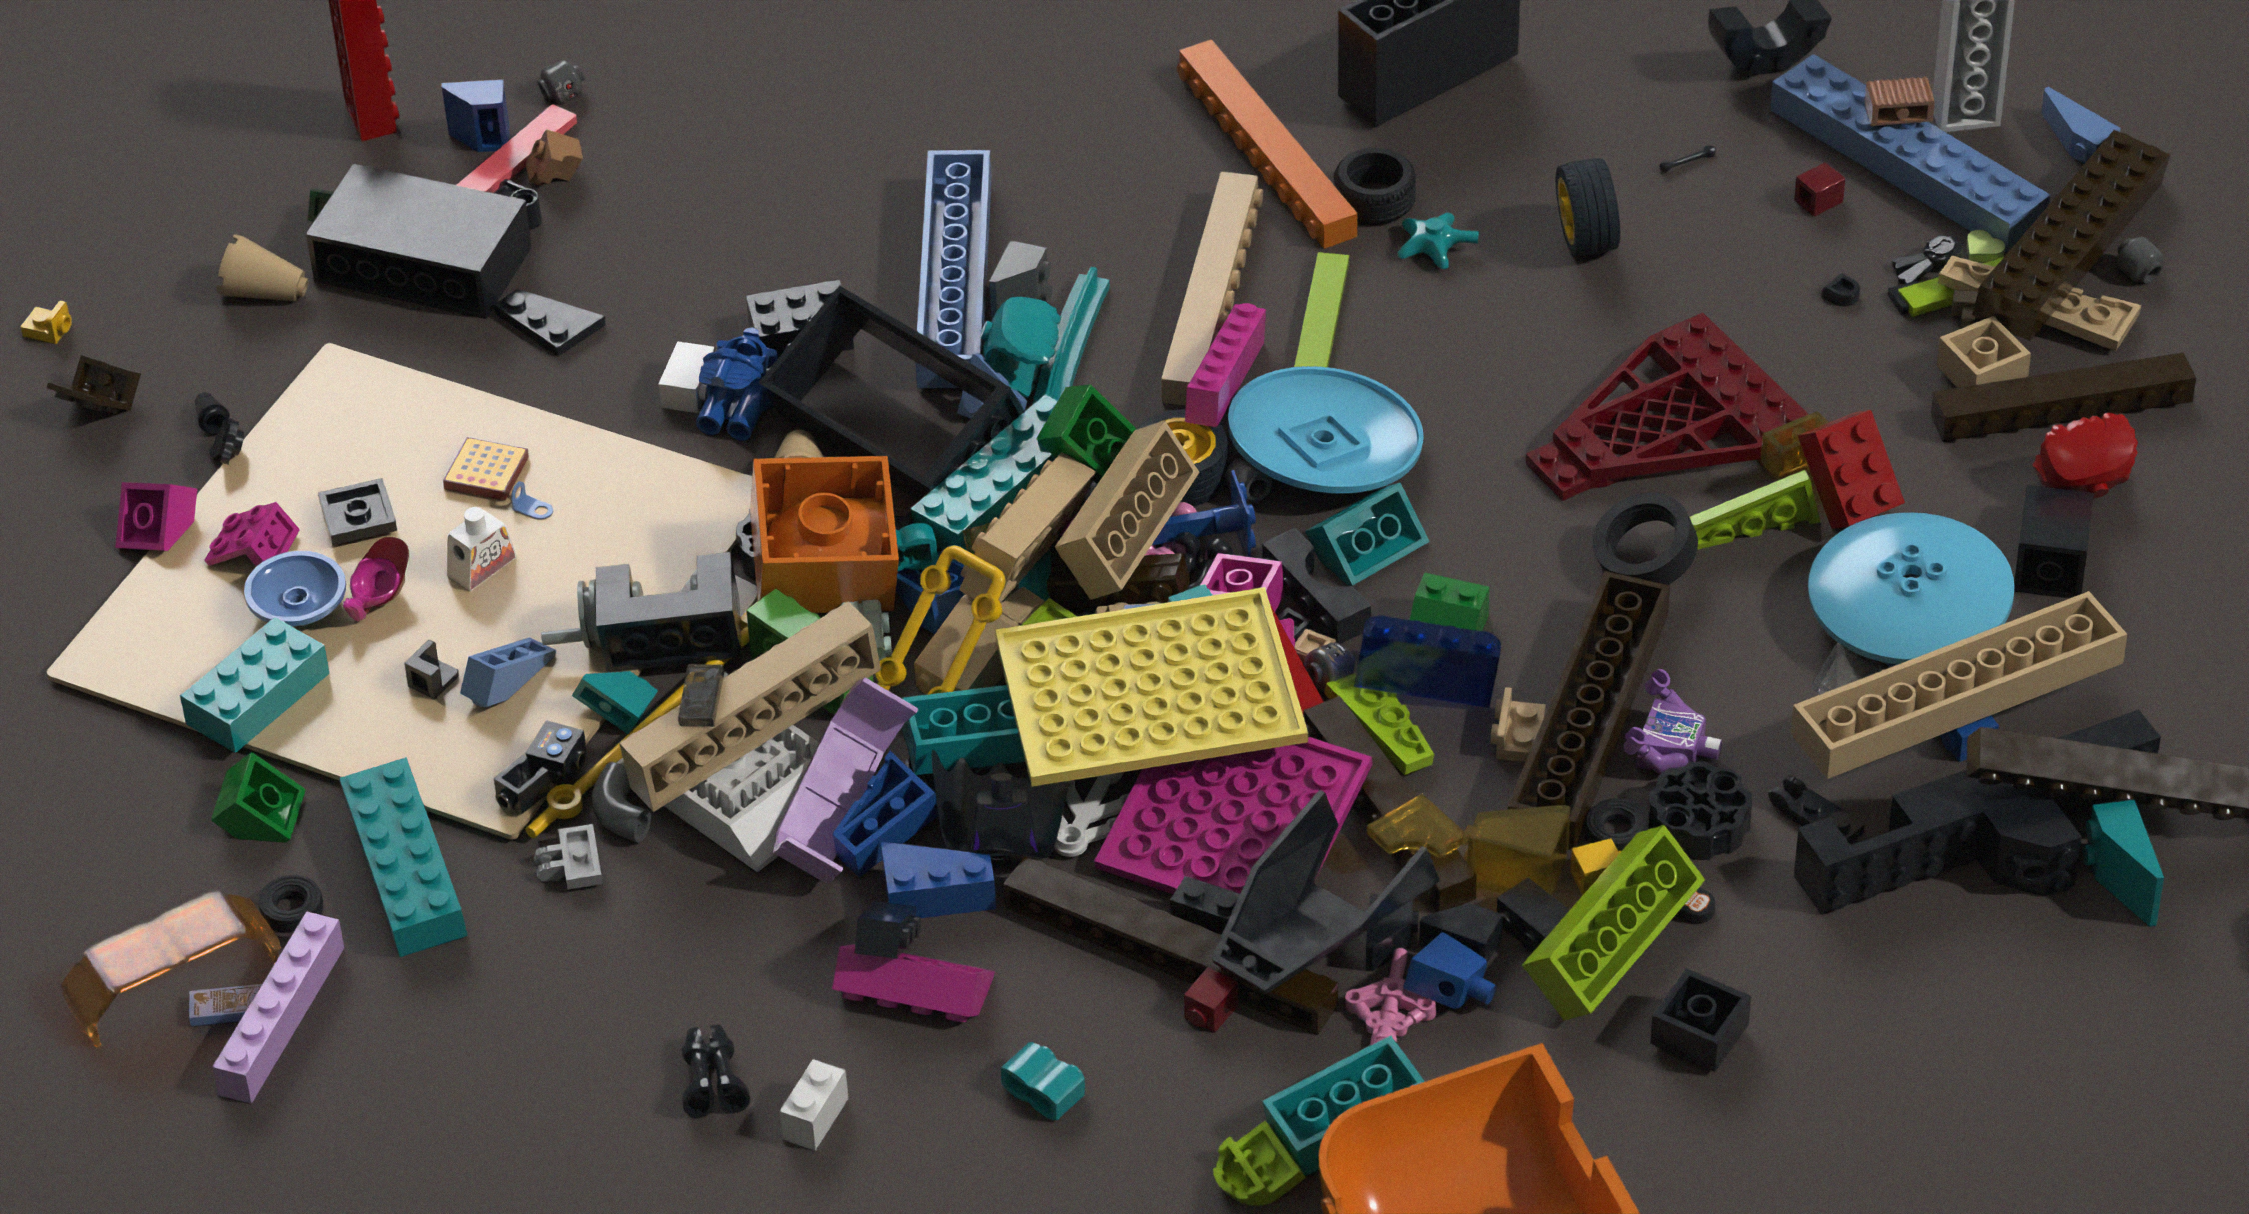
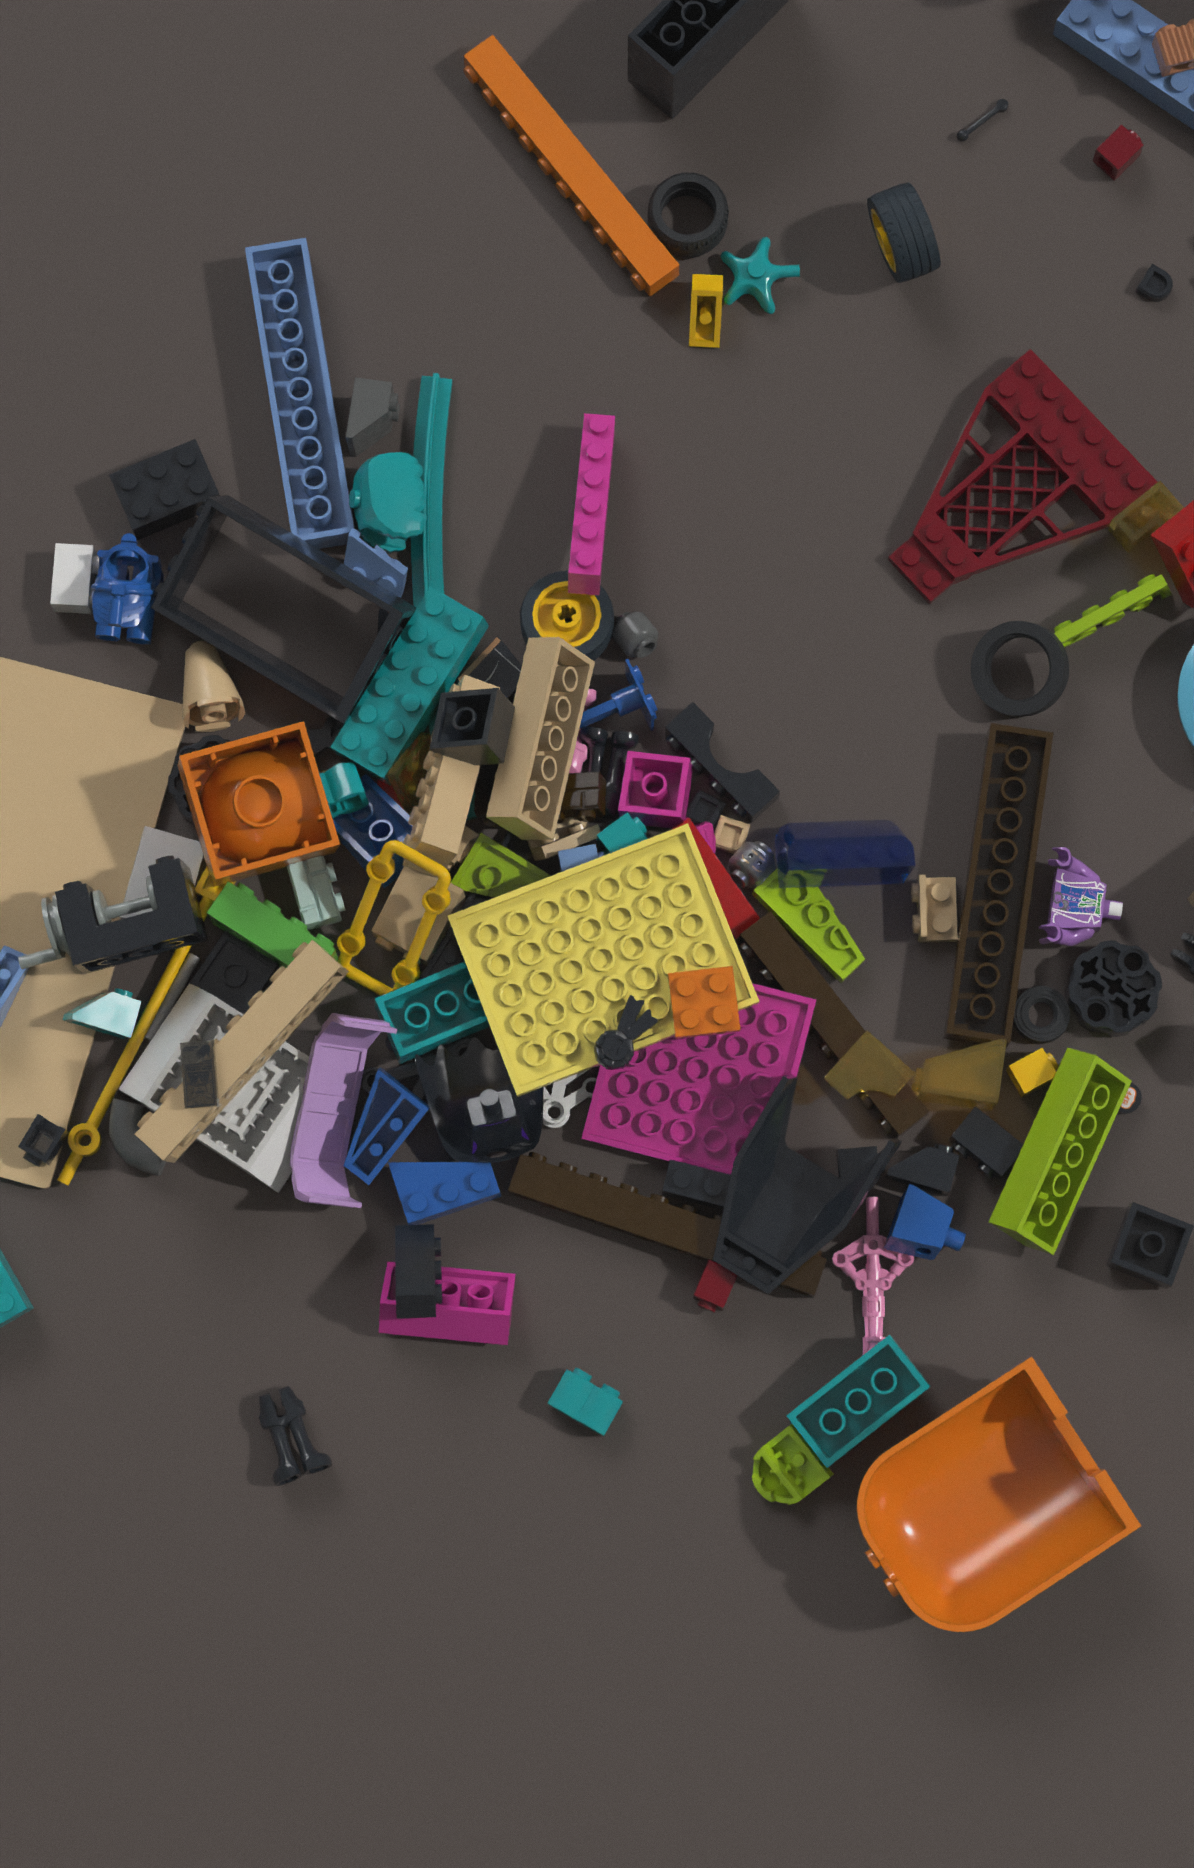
camera: 10 degrees left, 35 degrees up
(558, 750) = (66, 1094): black head -> none
(579, 858) = (113, 1204): light grey hinge -> none
(814, 1104) = (390, 1465): white brick -> none
(1061, 475) = (473, 726): none -> black slope
(1086, 429) = (486, 646): green slope -> none
(1148, 743) = (615, 1047): none -> black piece
(1212, 280) = (553, 378): tan brick -> none
(1248, 722) = (704, 1002): none -> orange plate
(1322, 310) = (664, 402): lime tile -> none
(1325, 429) = (705, 527): medium azure dish -> none
(1368, 535) = (758, 688): teal slope -> none
(1377, 255) = (706, 310): none -> yellow slope
(1451, 602) = (849, 784): green slope -> none

